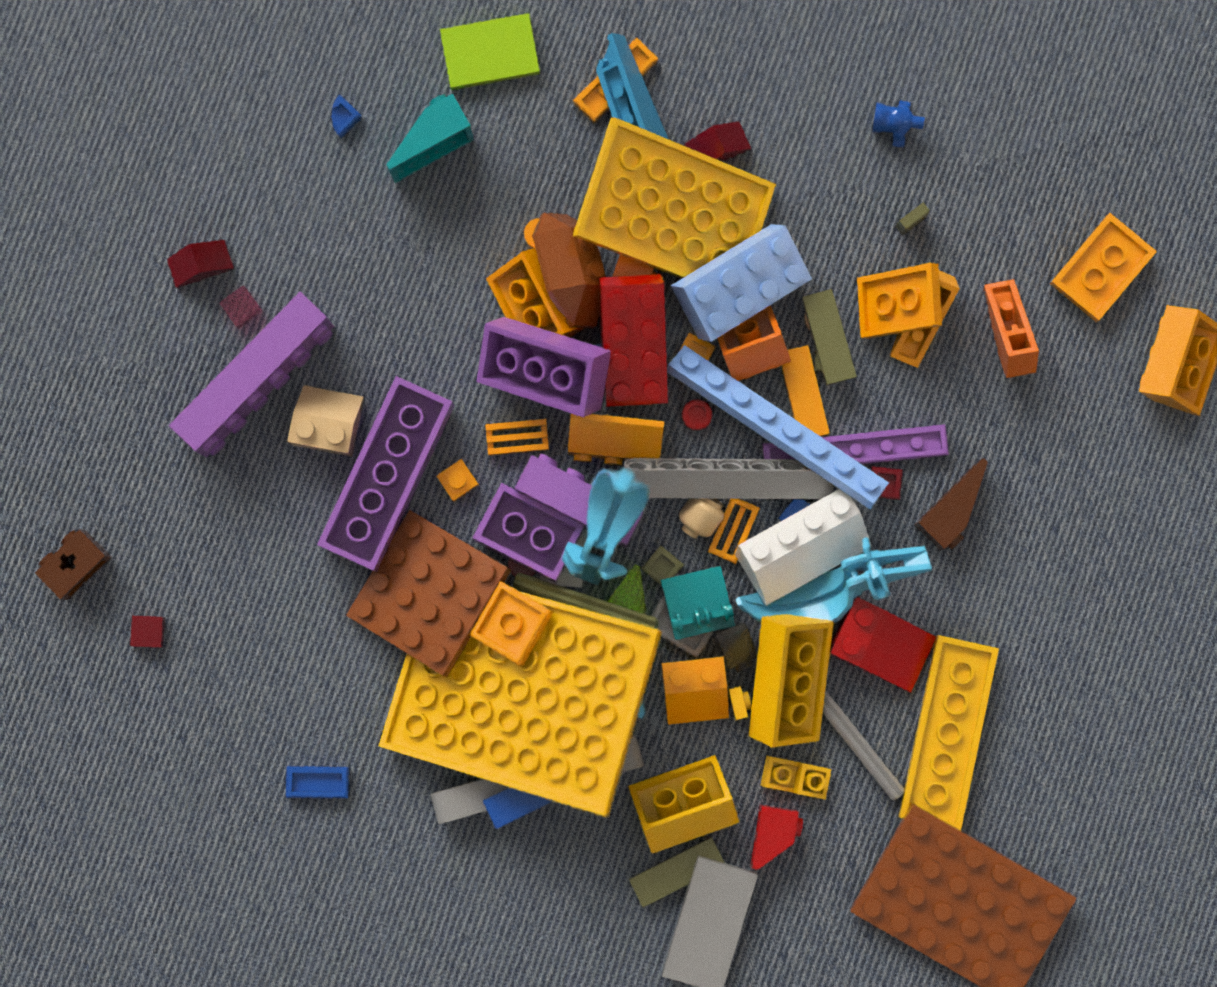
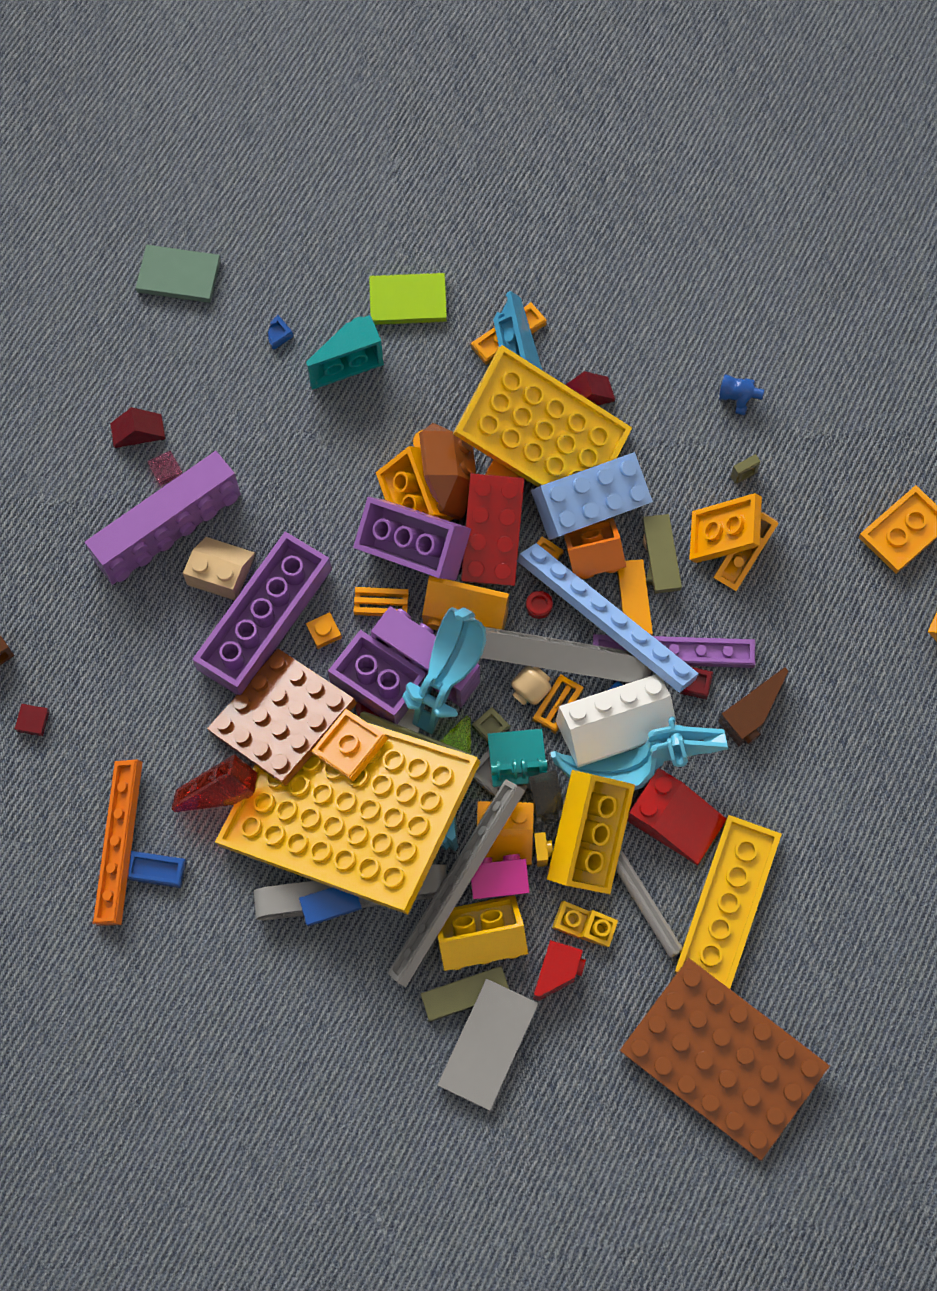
camera: 10 degrees right, 15 degrees down
(211, 55) = (178, 273): none -> sand green tile
(271, 759) = (117, 843): none -> orange tile
(369, 686) = (217, 787): none -> clear red slope
(652, 758) = (455, 882): none -> light grey tile
(696, 742) = (500, 878): none -> dark pink brick
(1011, 329) = (821, 569): orange slope -> none

